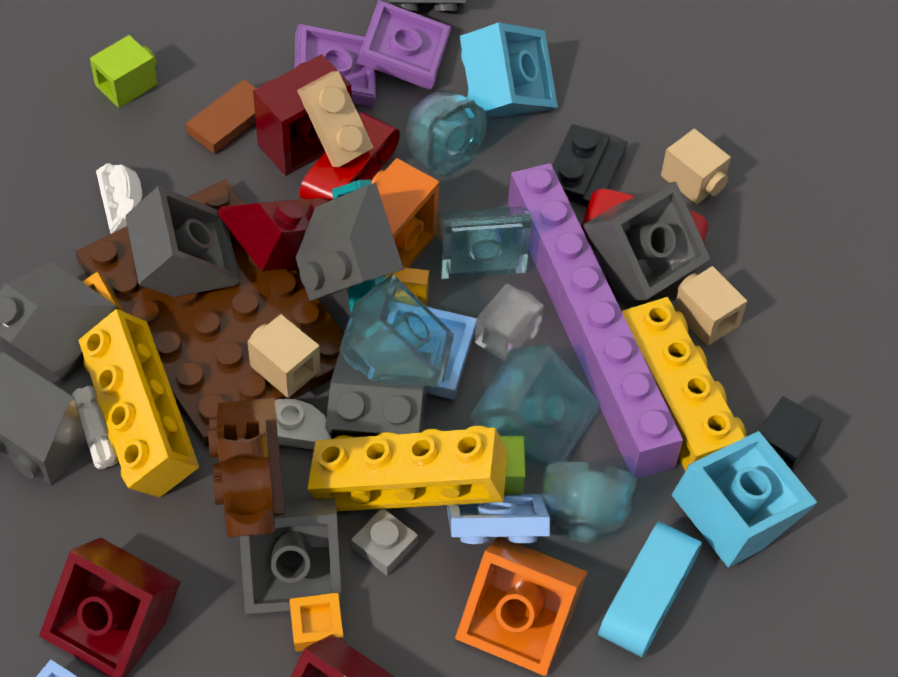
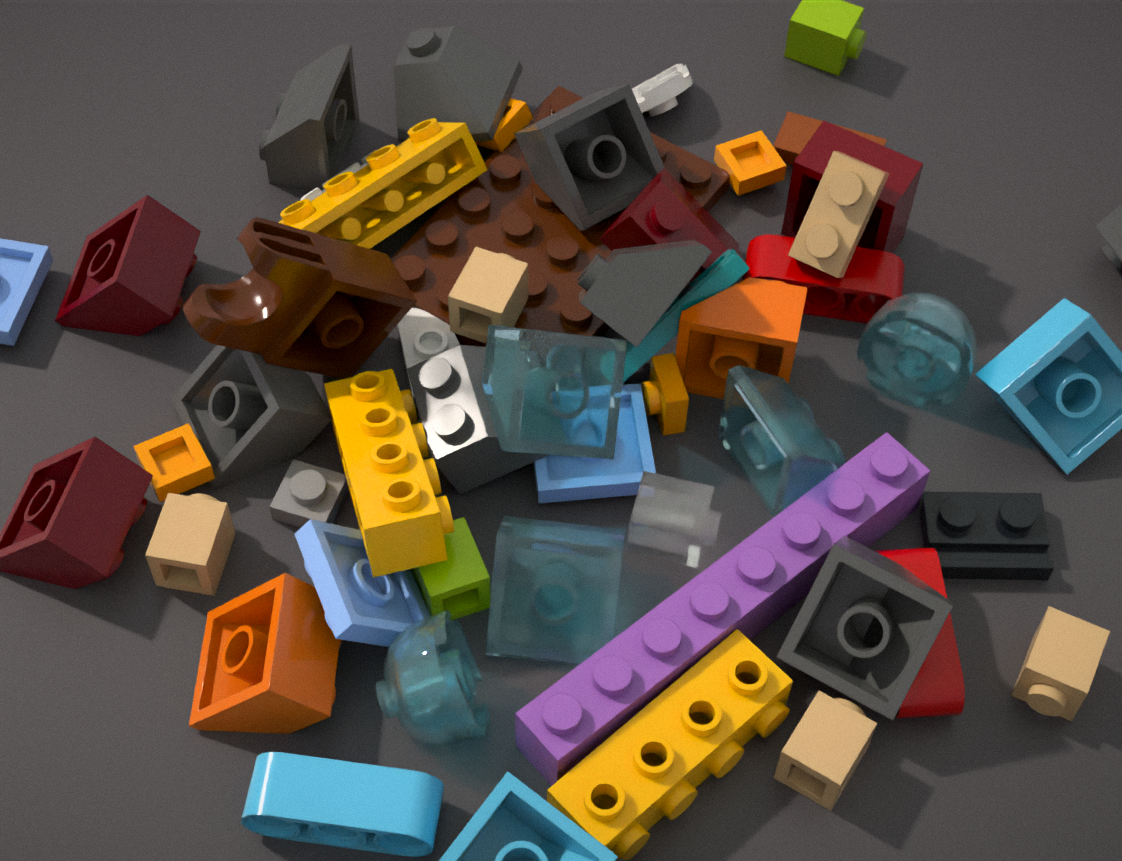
camera: 70 degrees right, 0 degrees up
(221, 162) = (750, 162): none -> light orange plate
(342, 52) = (968, 215): medium lavender plate -> none
(399, 626) = (191, 543): none -> tan brick
(404, 45) = (1041, 263): medium lavender plate -> none

